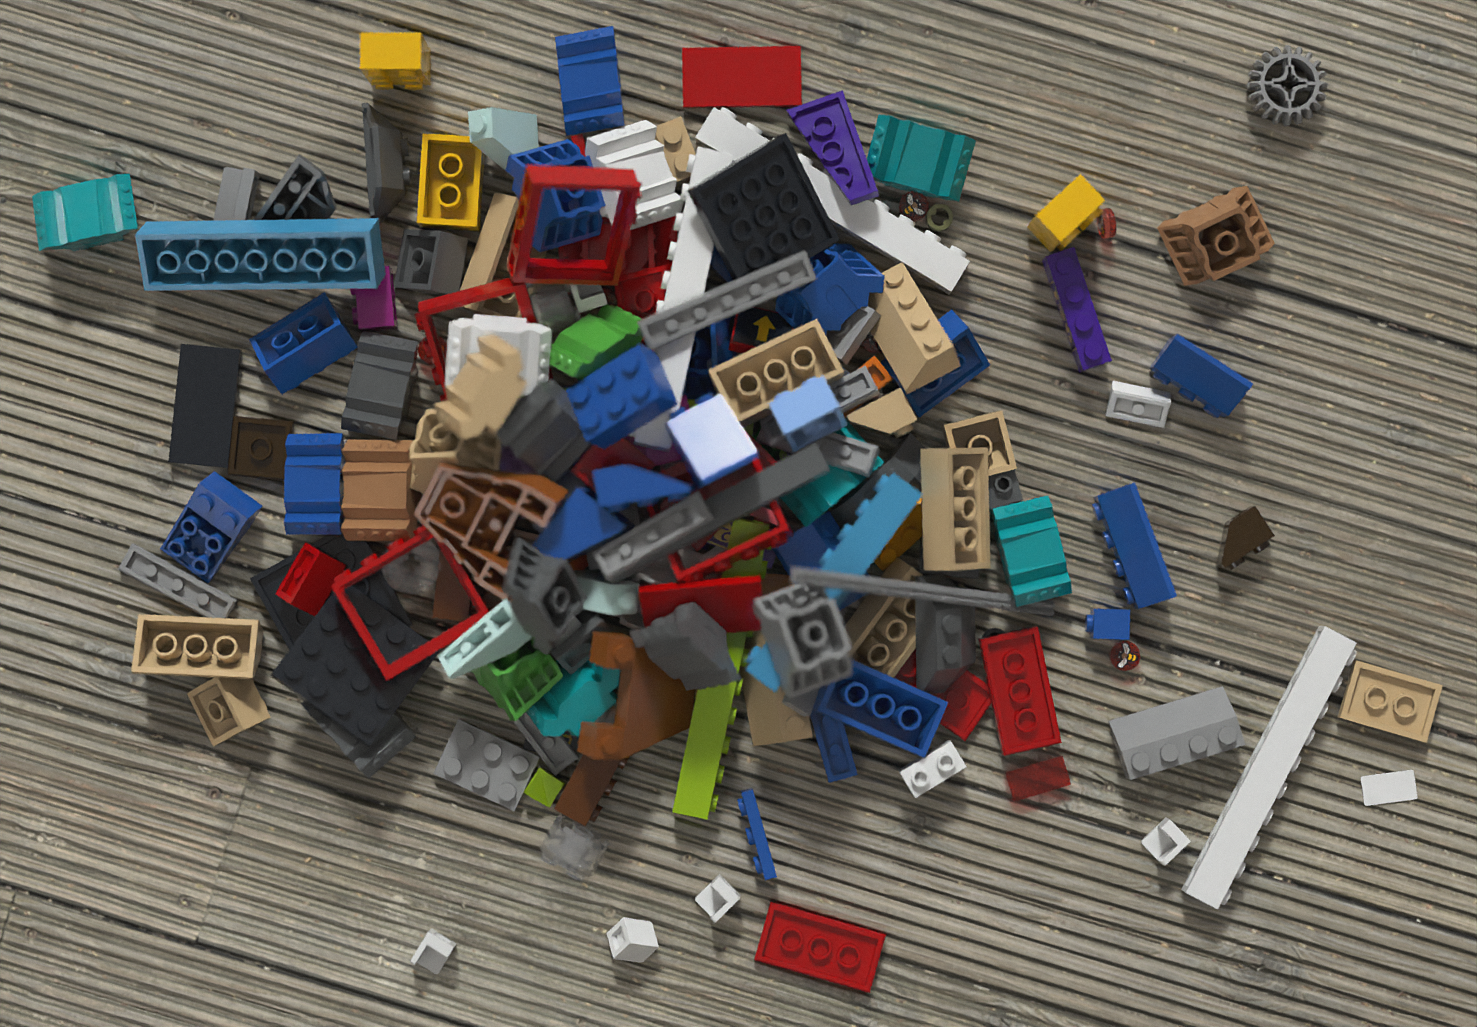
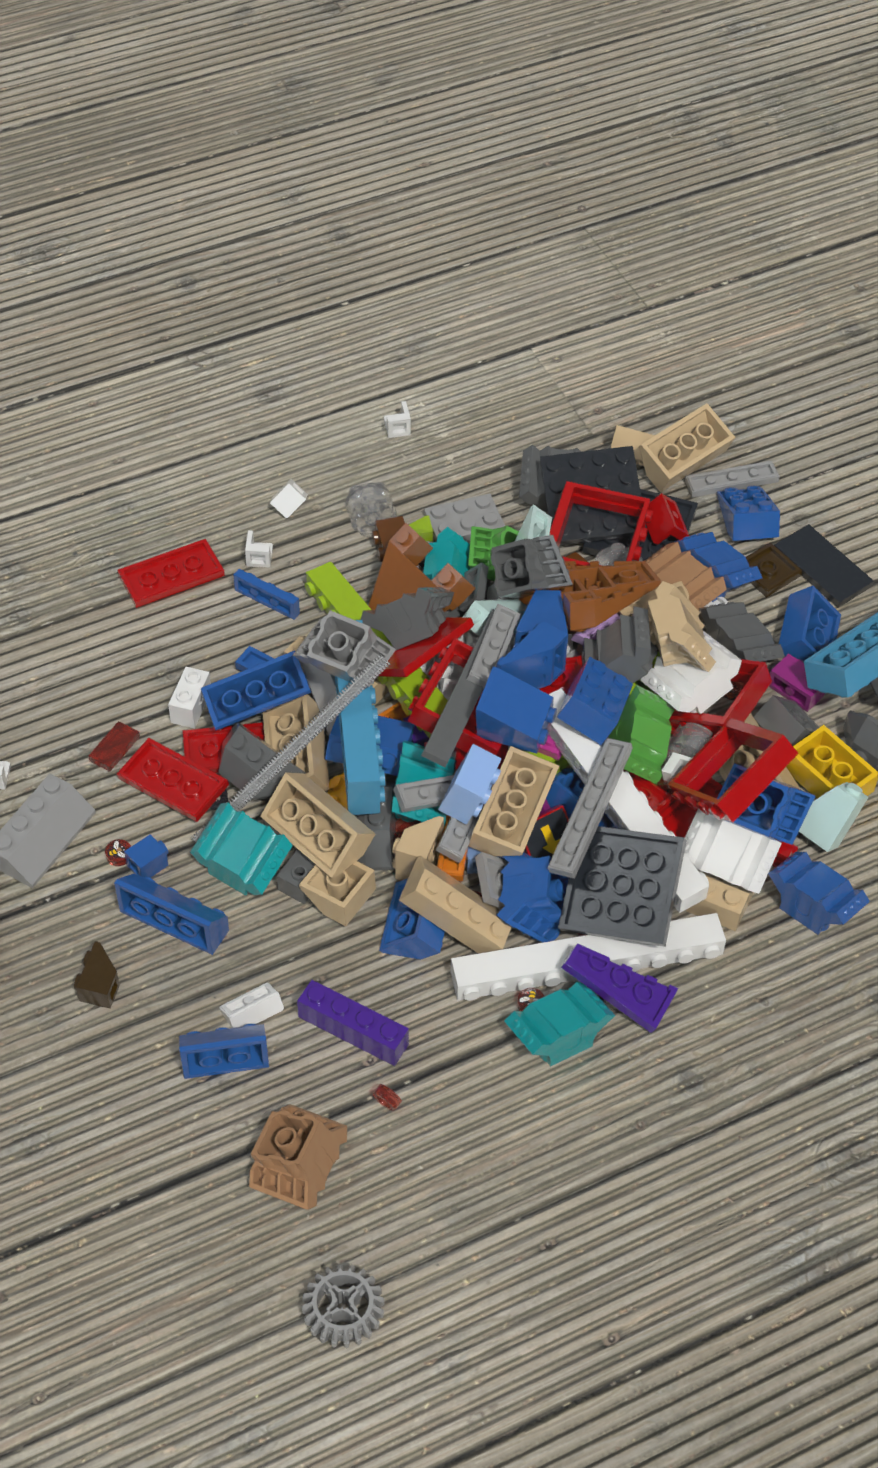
camera: 135 degrees right, 35 degrees down
(741, 77) = (728, 987): red tile -> none
(946, 223) = (505, 999): olive bush -> none
(1071, 209) = (419, 1060): yellow brick -> none

